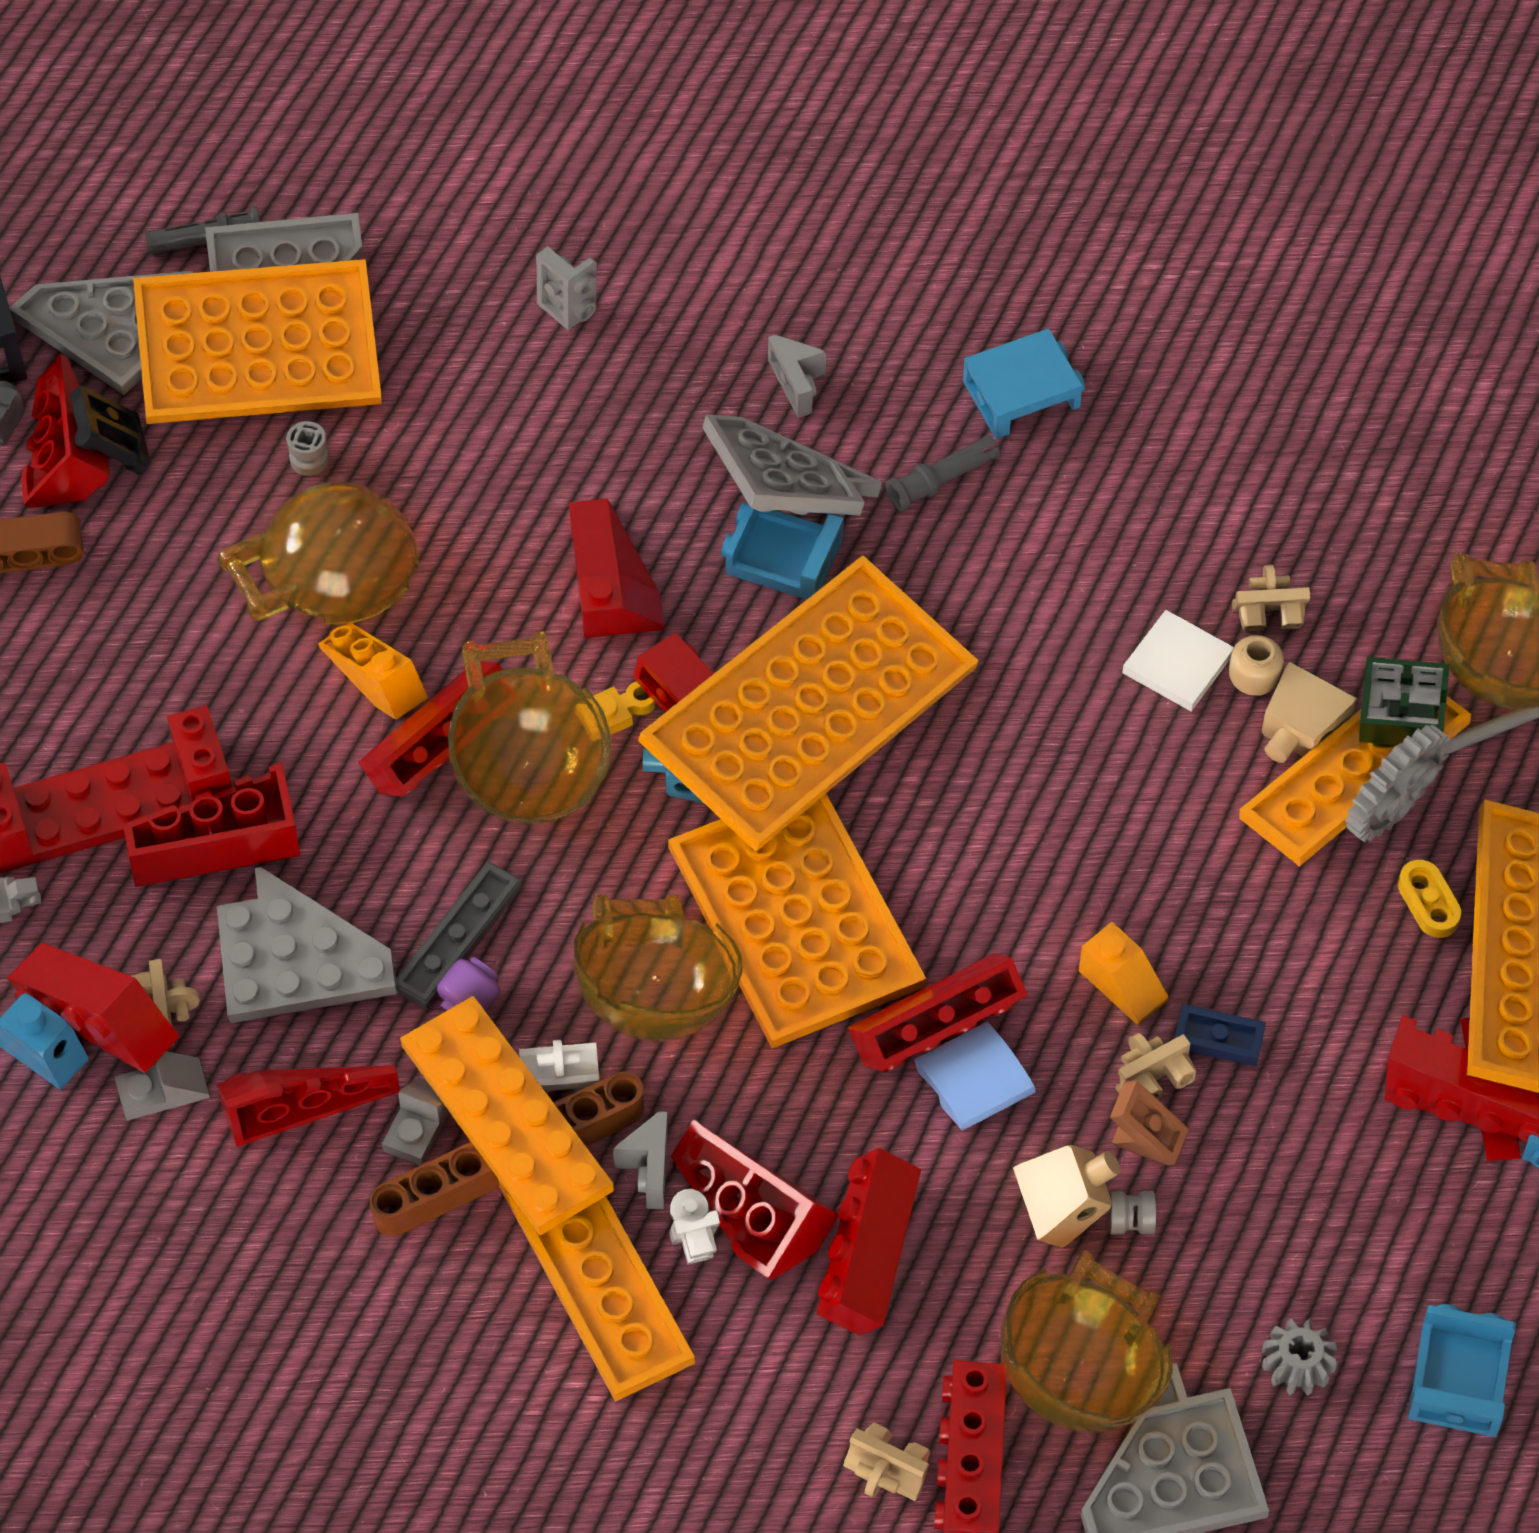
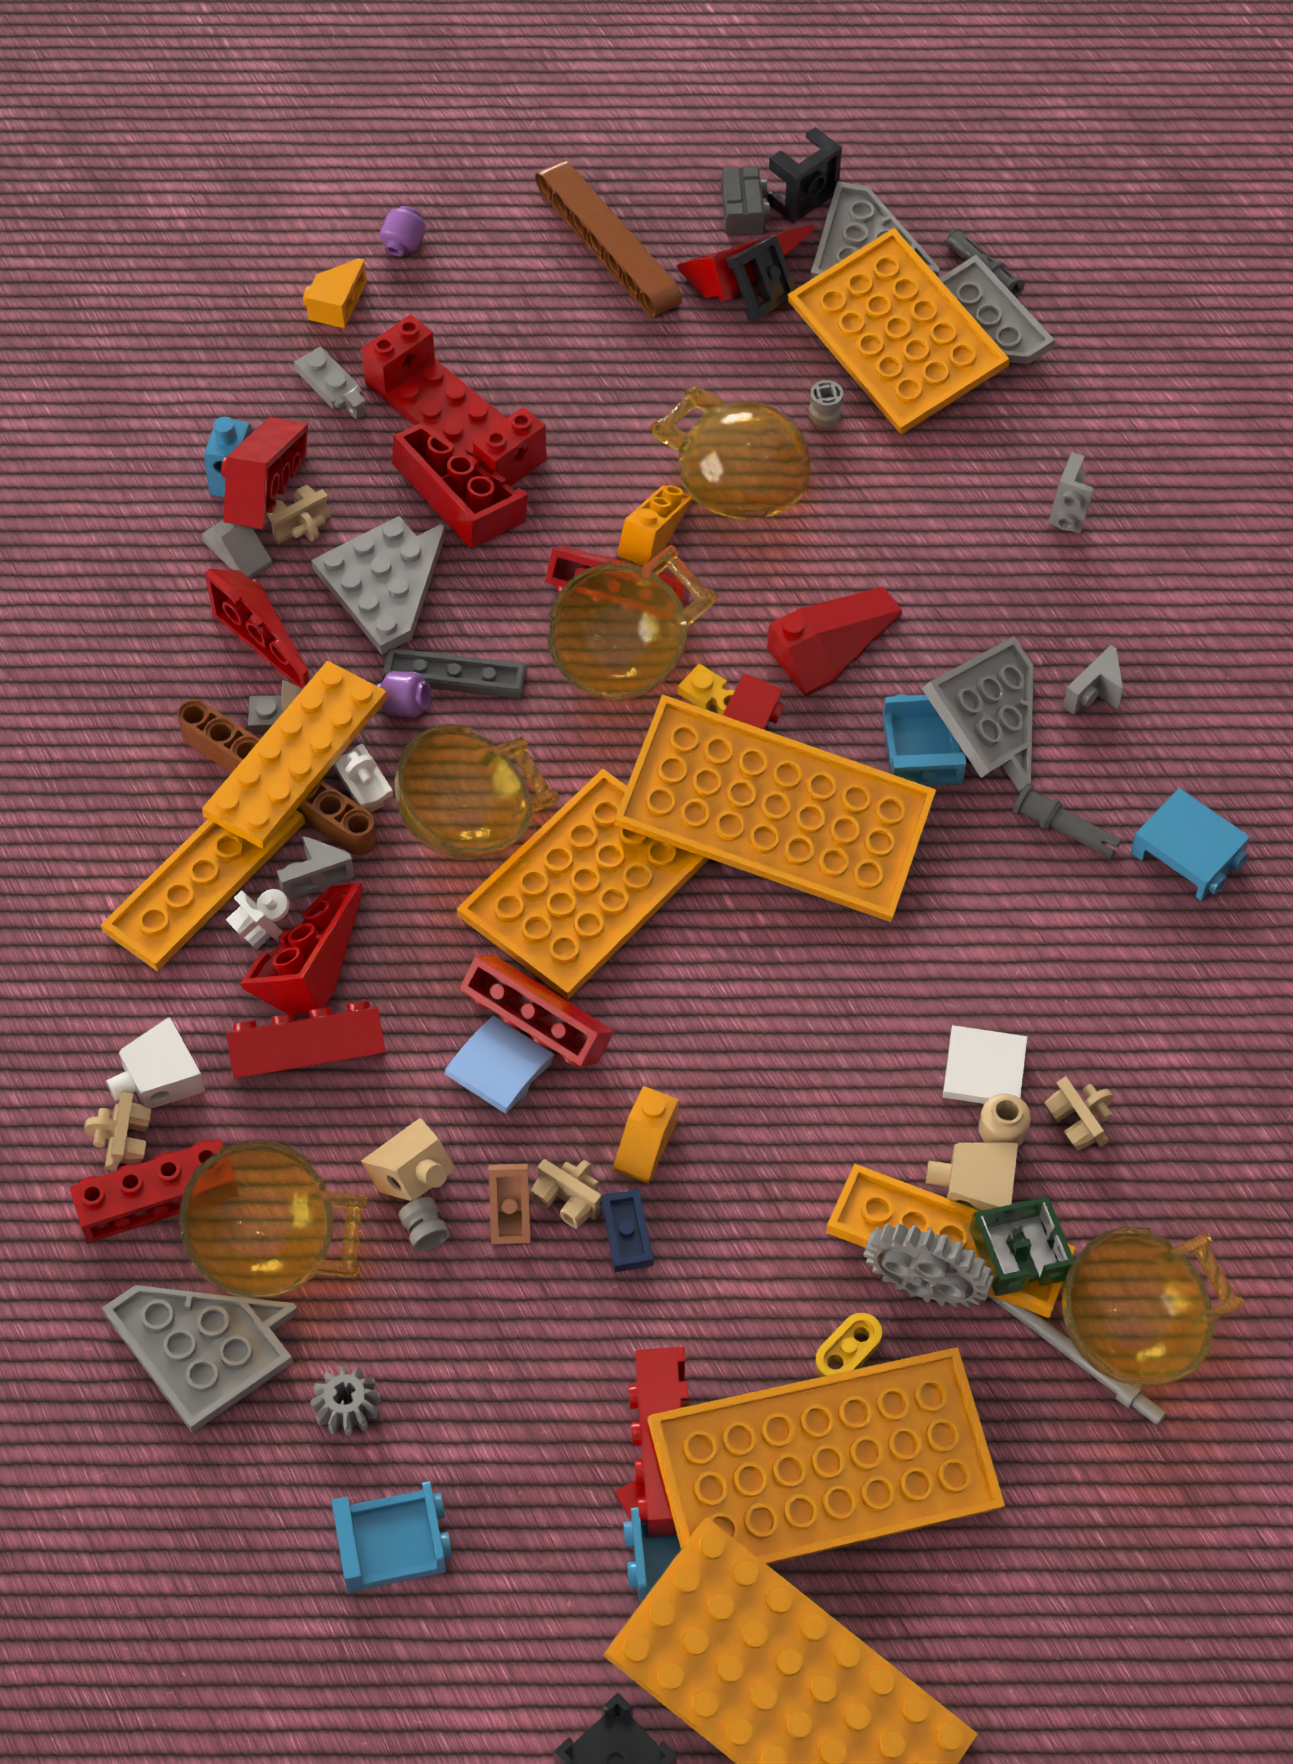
camera: 65 degrees right, 0 degrees up
(824, 1399) = (157, 1068): none -> white torso

